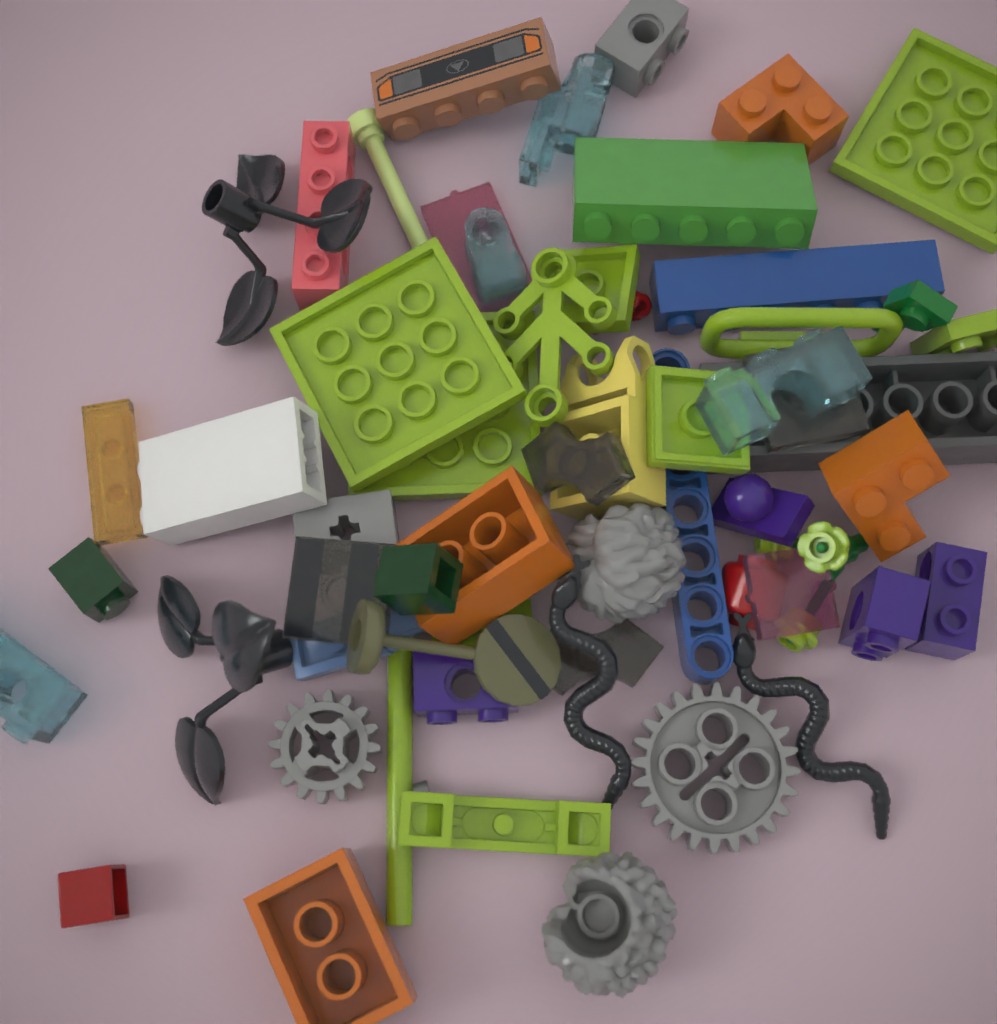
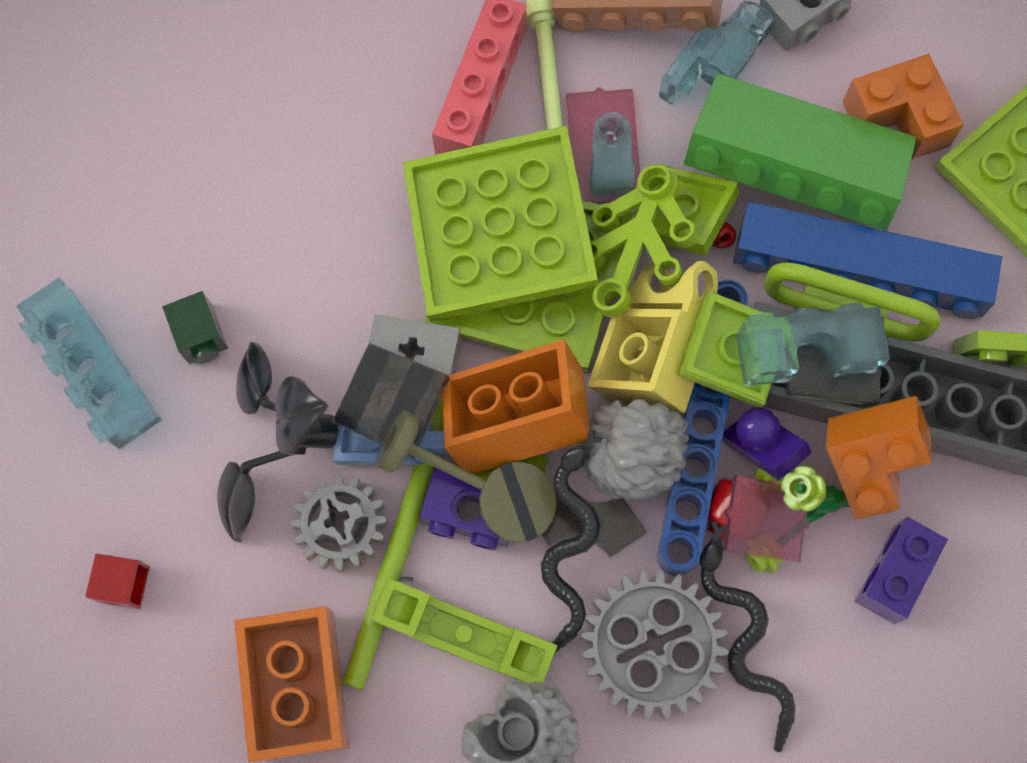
camera: 20 degrees right, 0 degrees up
(112, 471) = (239, 243): clear yellow tile -> none
(231, 472) = (334, 273): white brick -> none
(241, 210) = (409, 56): black plant -> none
(418, 579) = (455, 408): dark green brick -> none
(593, 466) = (631, 360): clear smoke tile -> none
(884, 613) = (840, 563): dark purple brick -> none
(919, 306) = (959, 311): green plate -> none

